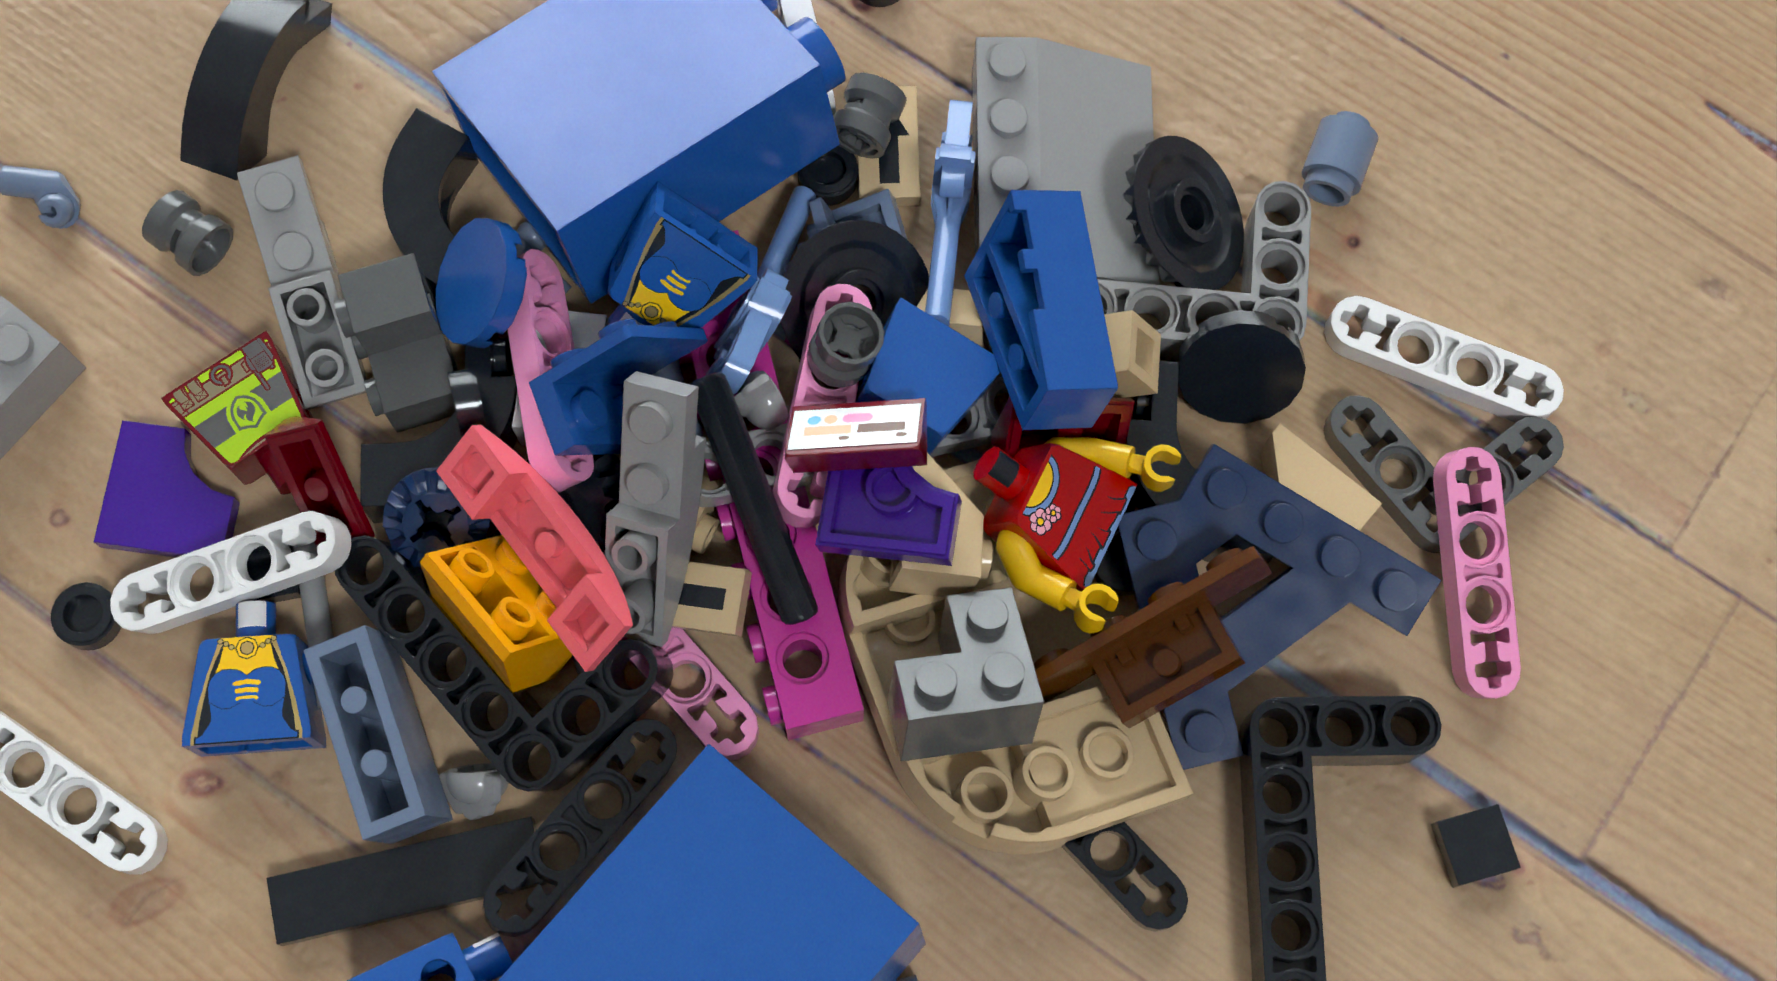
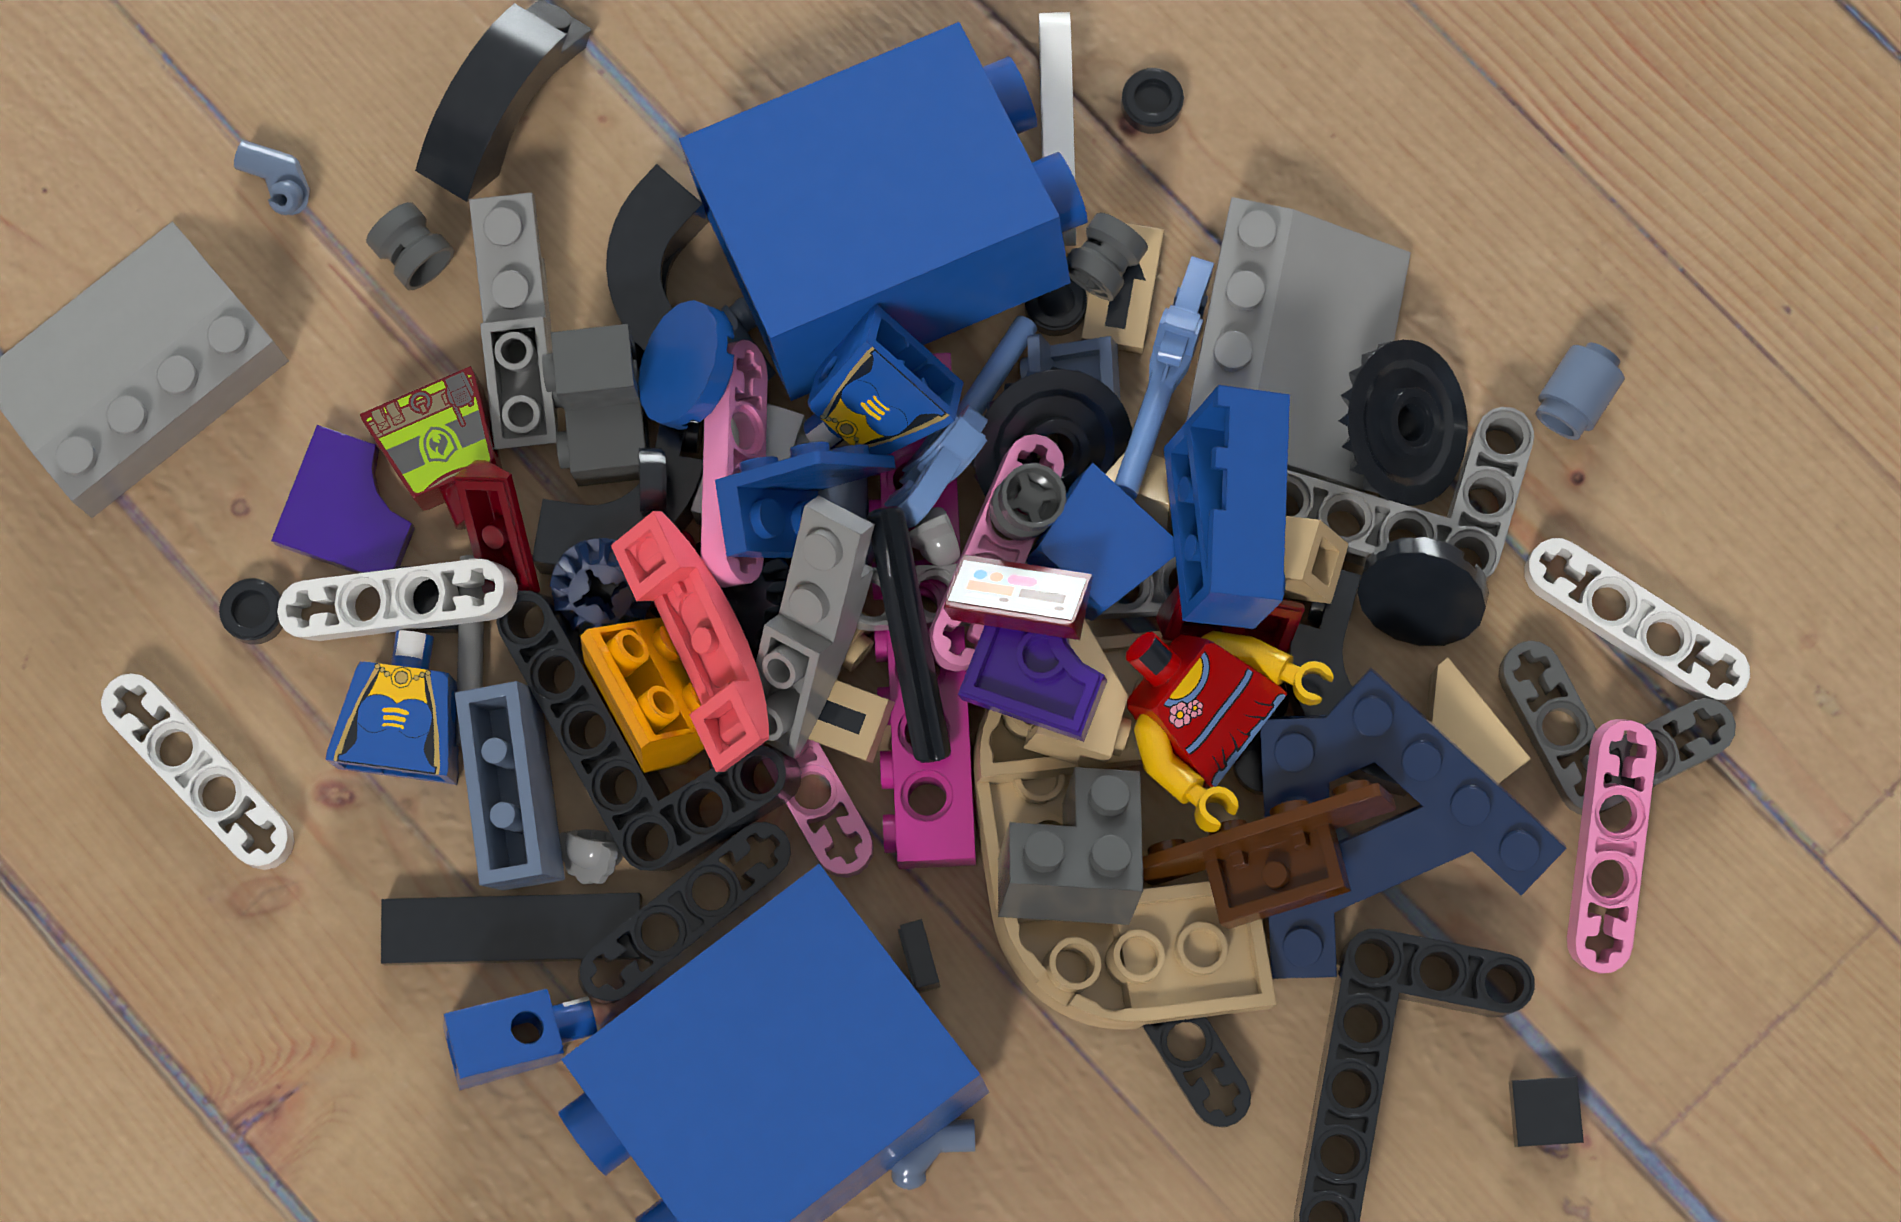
camera: 20 degrees right, 5 degrees up
(826, 819) = (918, 956): none -> black tile

